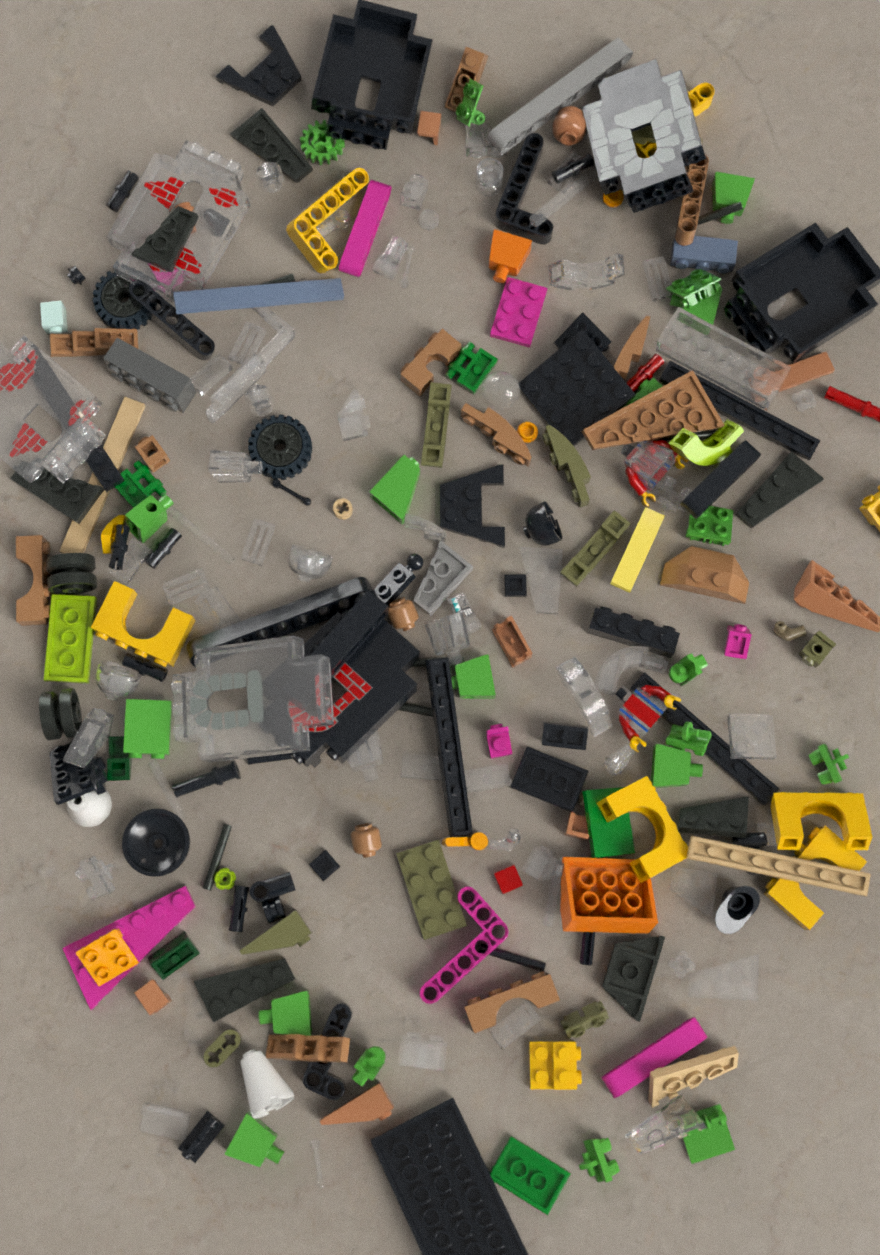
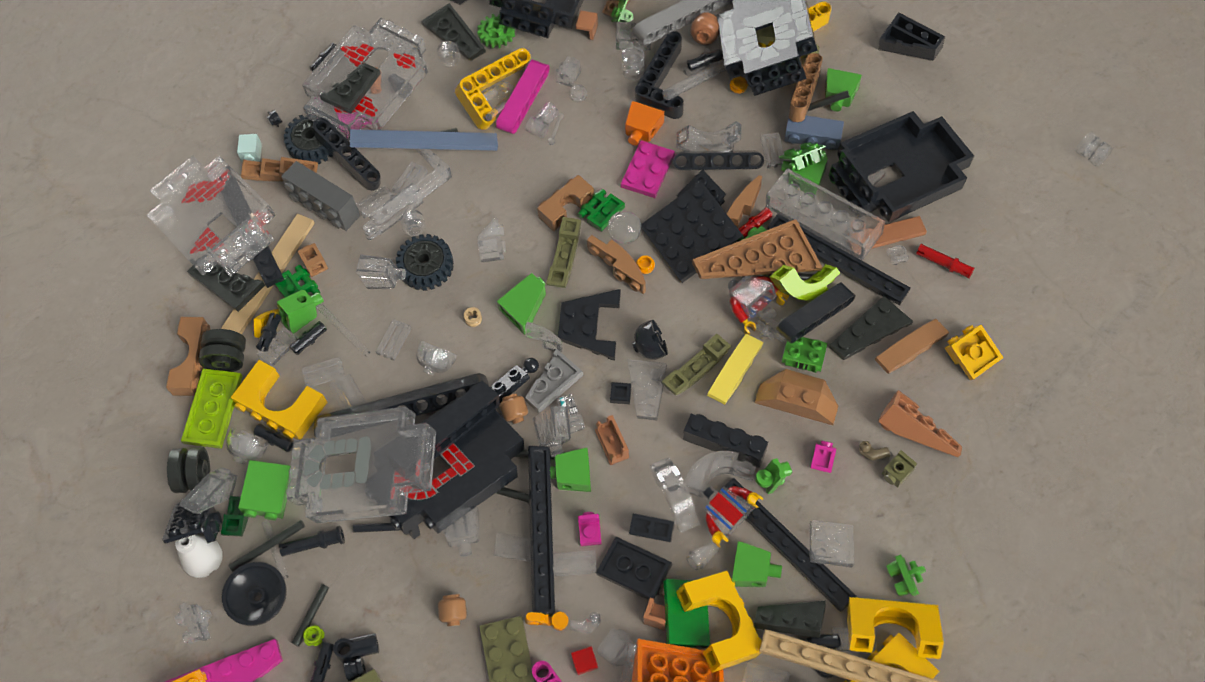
camera: 10 degrees right, 15 degrees down
(158, 789) = (267, 545): none -> pearl dark grey bar
(277, 484) = (417, 292): black hinge -> none
(324, 865) = (410, 632): black tile -> none
(340, 247) = (499, 107): none -> clear bar
(566, 457) = (680, 290): olive slope -> none
(607, 303) = (726, 164): none -> black beam
(689, 738) = (768, 537): bright green hips -> none
(808, 125) = (911, 39): none -> black wedge
(824, 509) = (911, 346): none -> medium nougat slope

